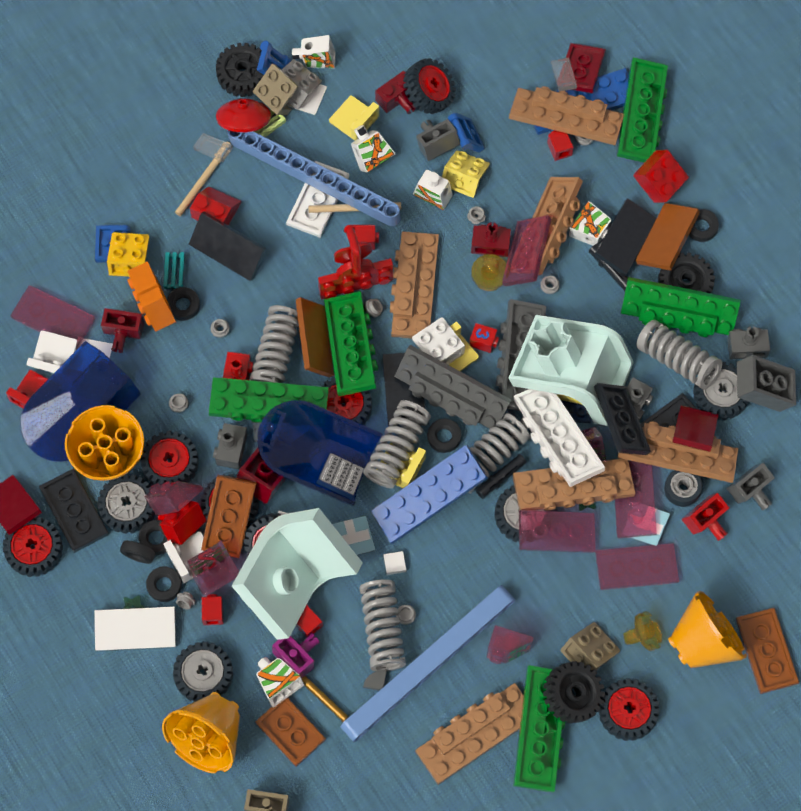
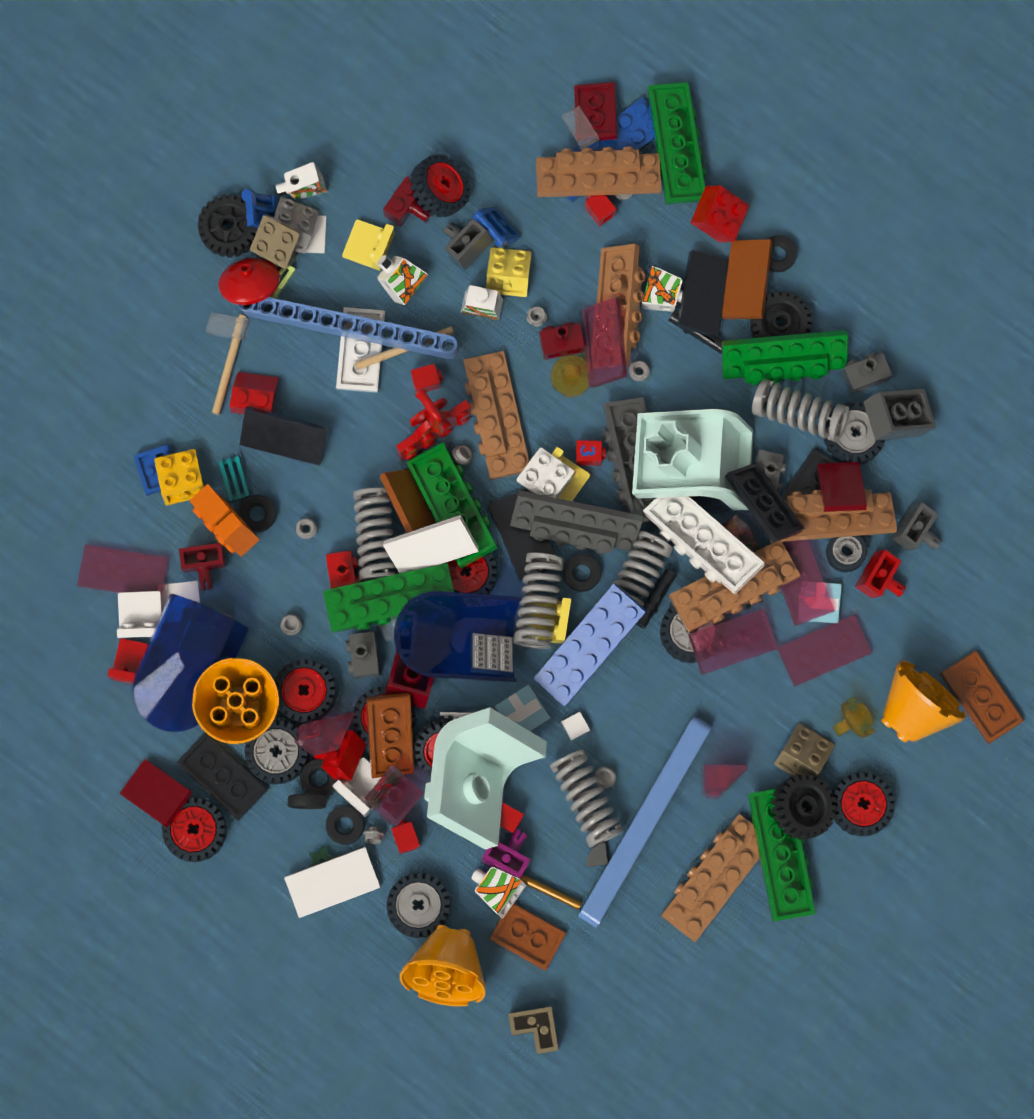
camera: 20 degrees left, 10 degrees up
(319, 366) = (431, 545): none -> white tile

